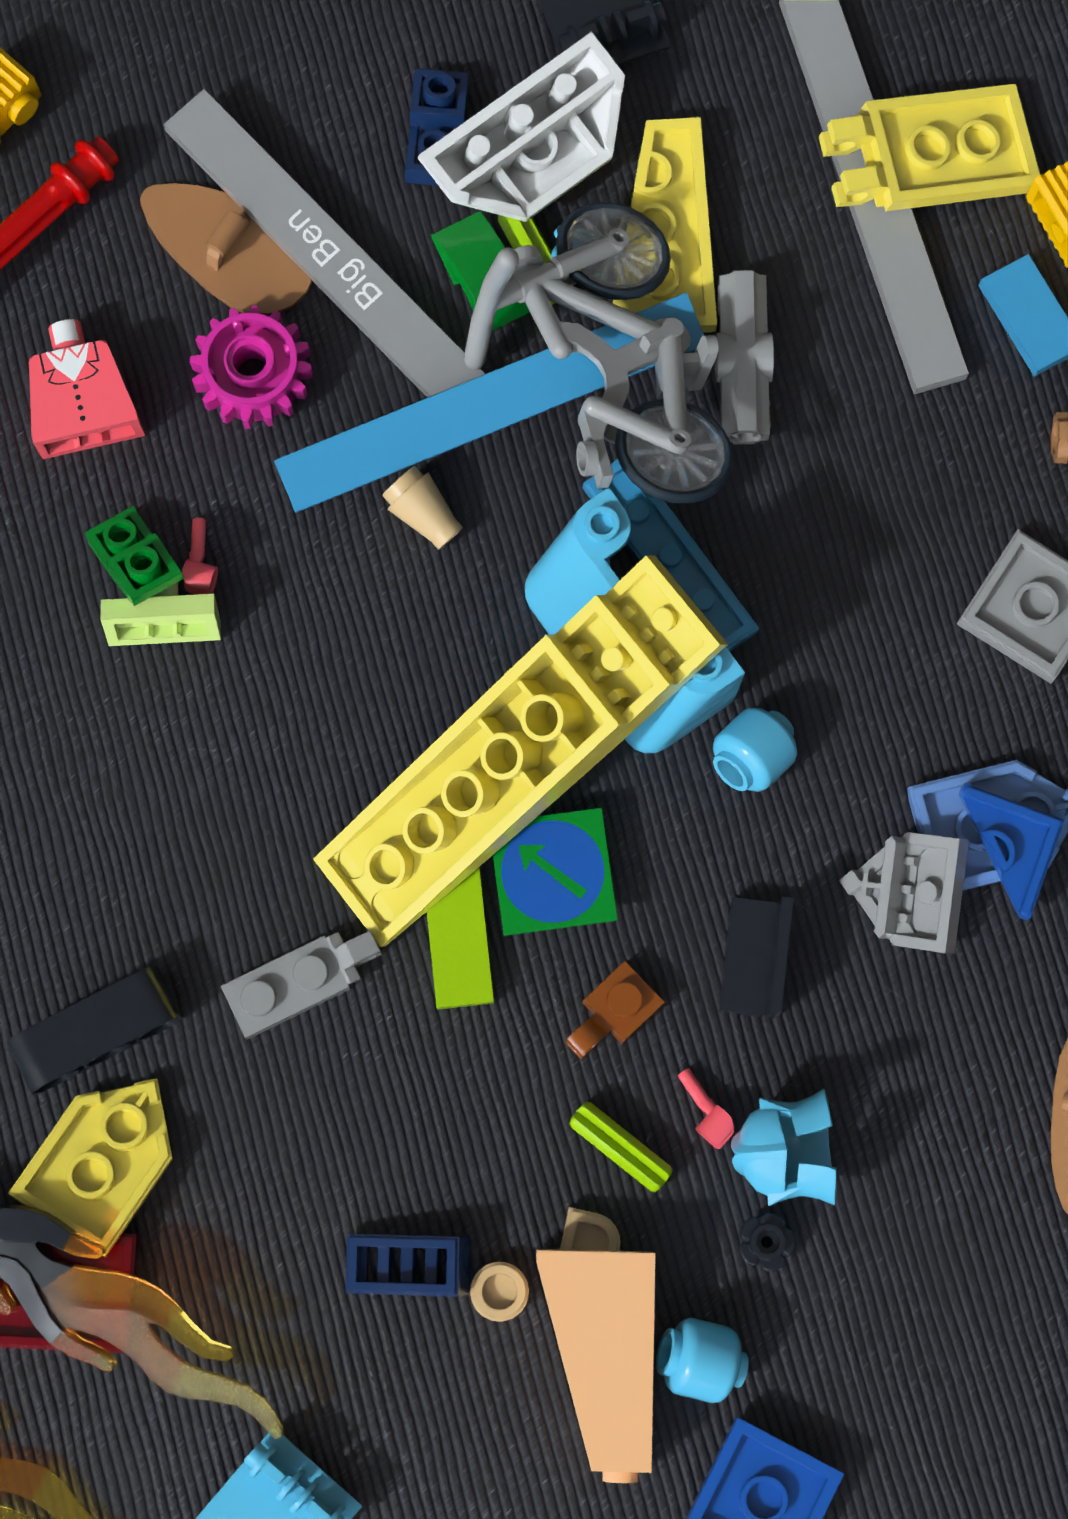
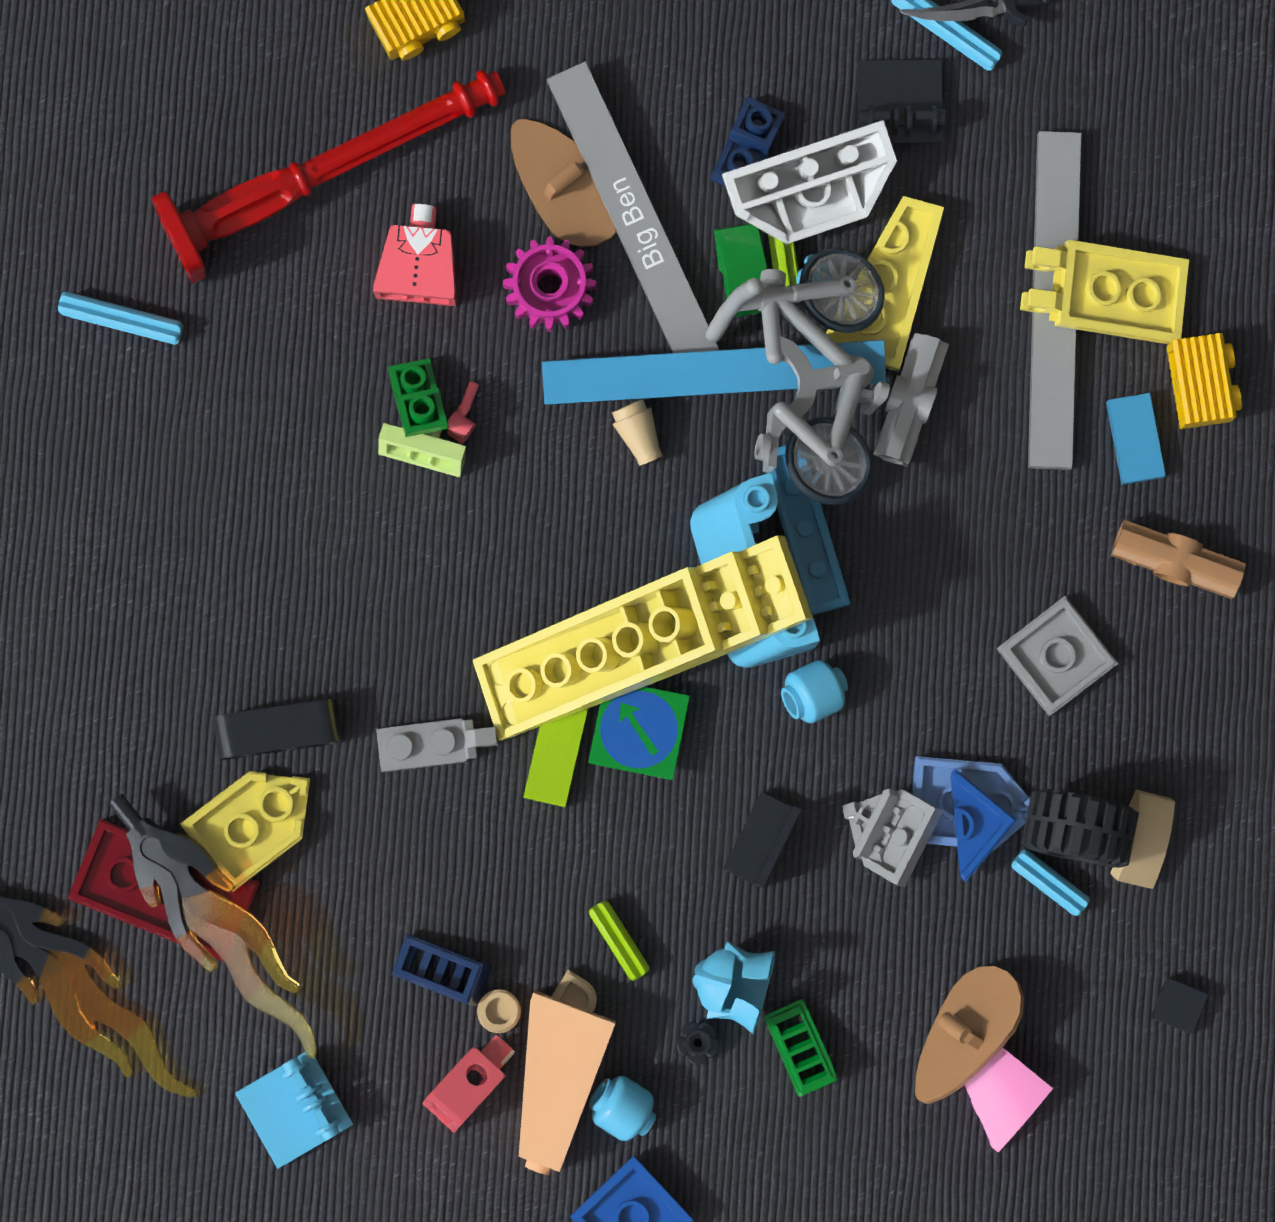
camera: 20 degrees right, 5 degrees up
(487, 1422) = (455, 1096): none -> coral torso
(617, 1007) = (652, 840): dark orange plate -> none
(718, 1124) = (691, 949): coral hand -> none
(913, 1187) = (816, 1081): none -> green slope

